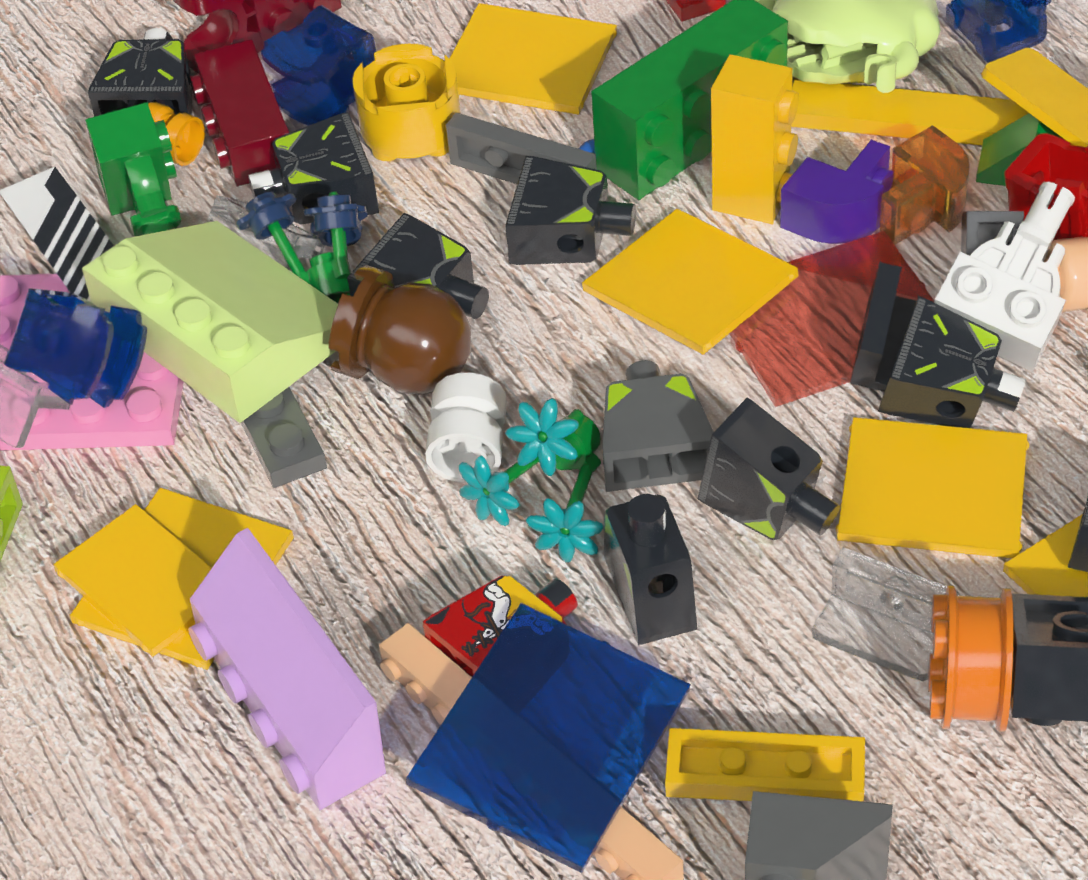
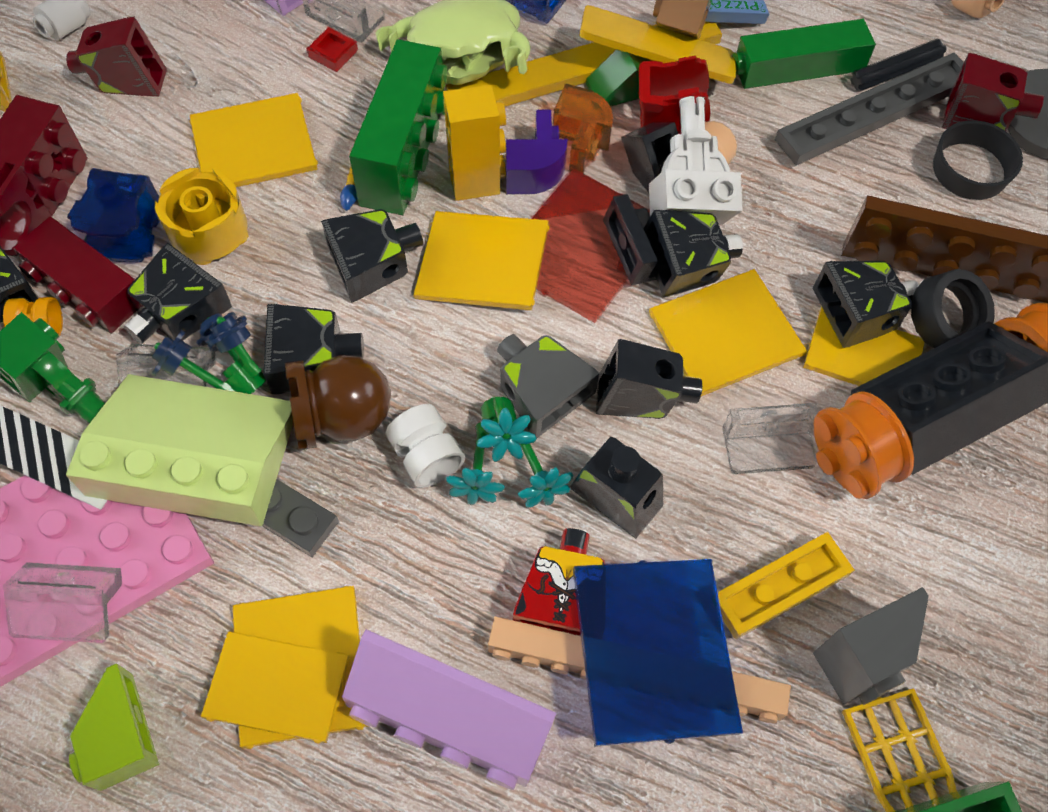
camera: 40 degrees left, 15 degrees up
(78, 346) = (105, 540): clear blue piece -> none
(502, 150) = (298, 221): dark grey plate -> none

